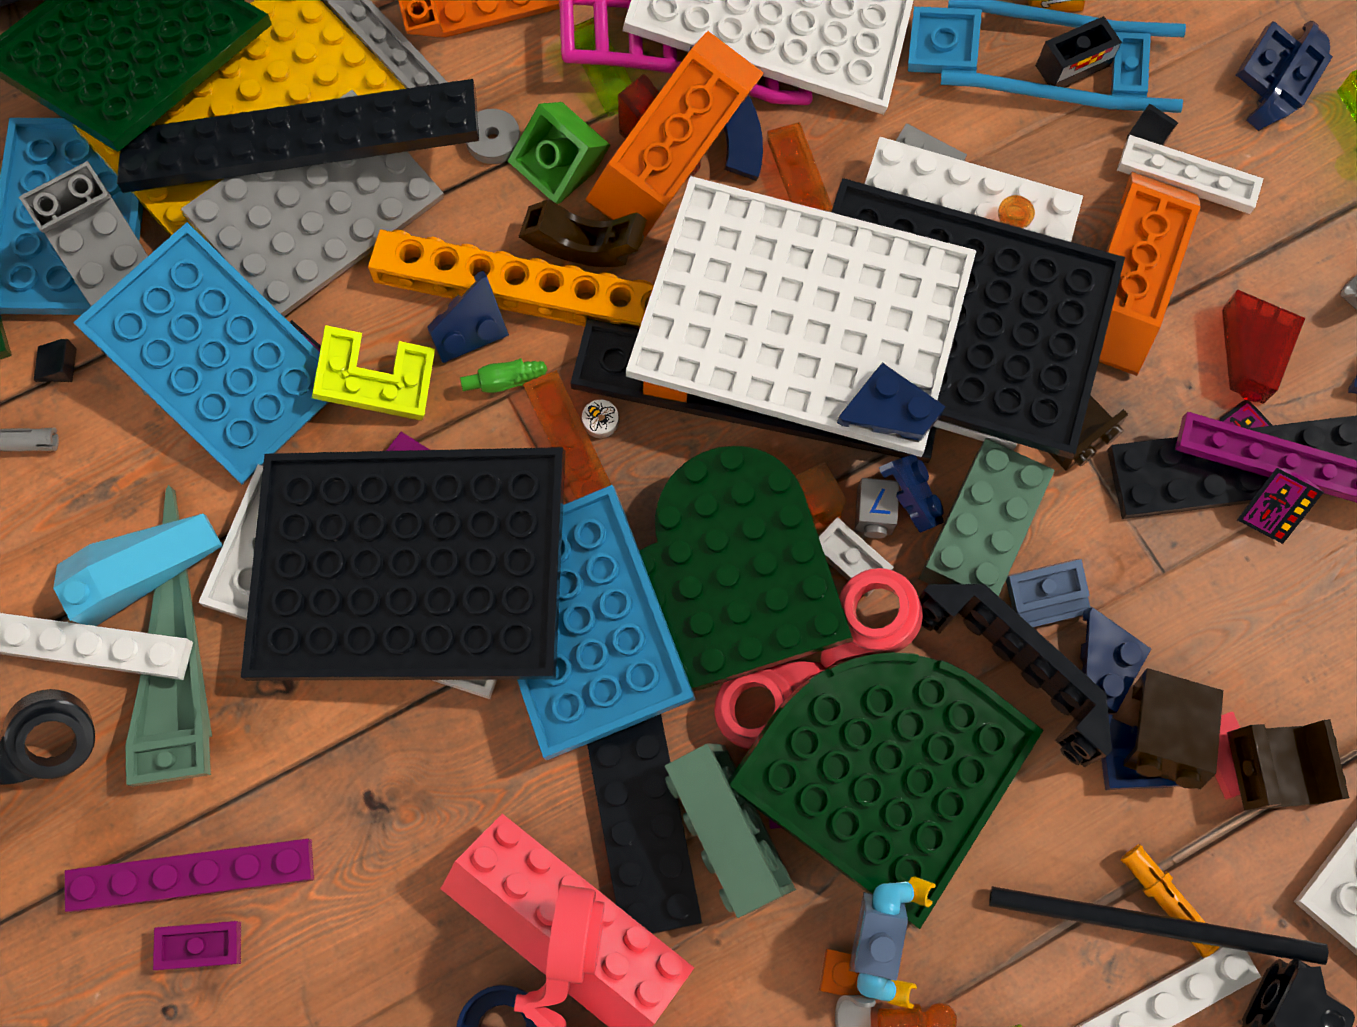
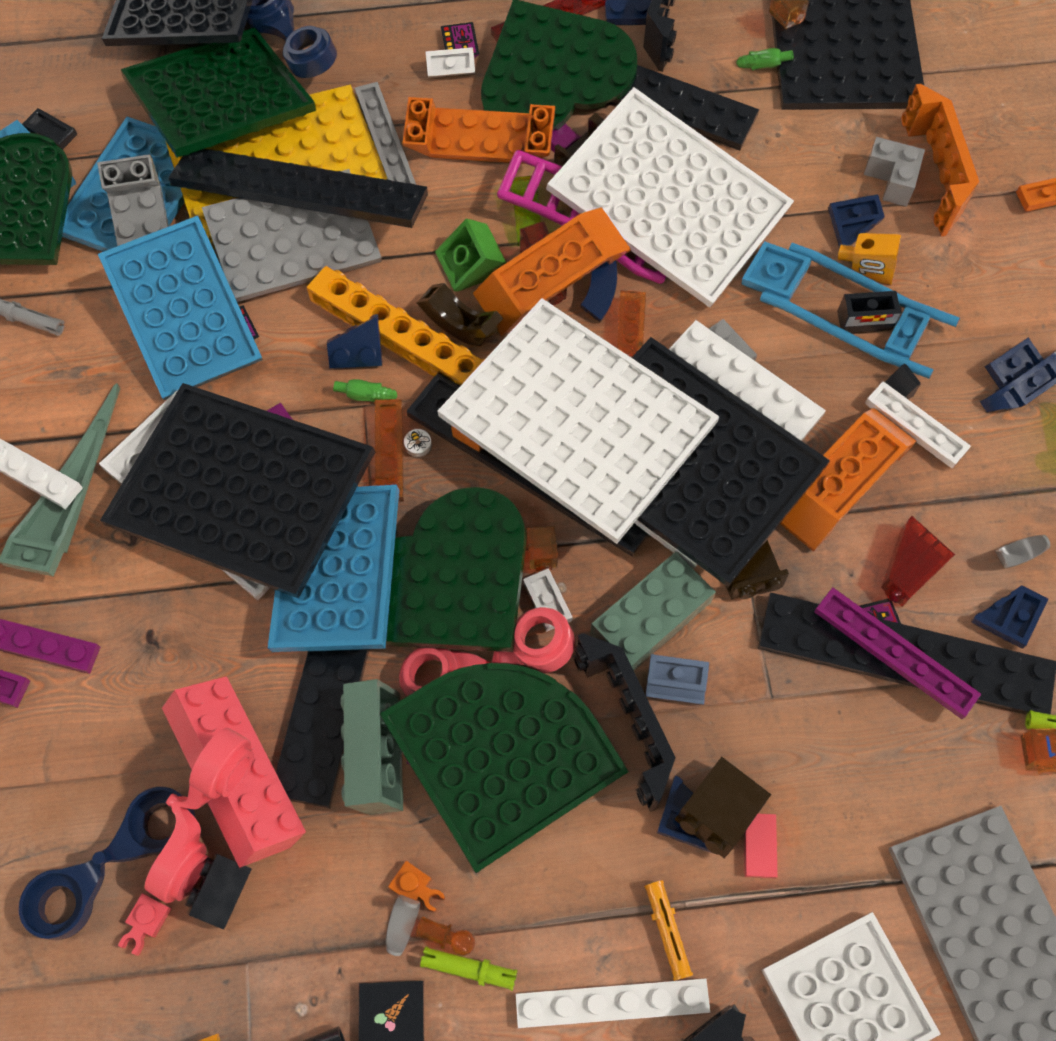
camera: 25 degrees right, 5 degrees down
(55, 362) = (84, 279): black slope -> none
(127, 567) = (66, 425): medium azure wedge -> none
(343, 383) = (255, 355): neon yellow plate -> none
(500, 148) = (431, 222): light grey piece -> none
(876, 507) = (579, 572): light grey brick -> none
(881, 939) = (439, 862): torso -> none
(892, 406) = (607, 499): dark blue wing -> none
(915, 494) = (609, 569): dark blue wing -> none
(1016, 211) = (767, 403): clear orange plate -> none
(1111, 657) = (700, 742): dark blue wing -> none
(1159, 925) = (649, 942): black piece -> none
(1280, 504) = (876, 680): piece -> none
(1287, 765) = (797, 868): dark brown panel -> none

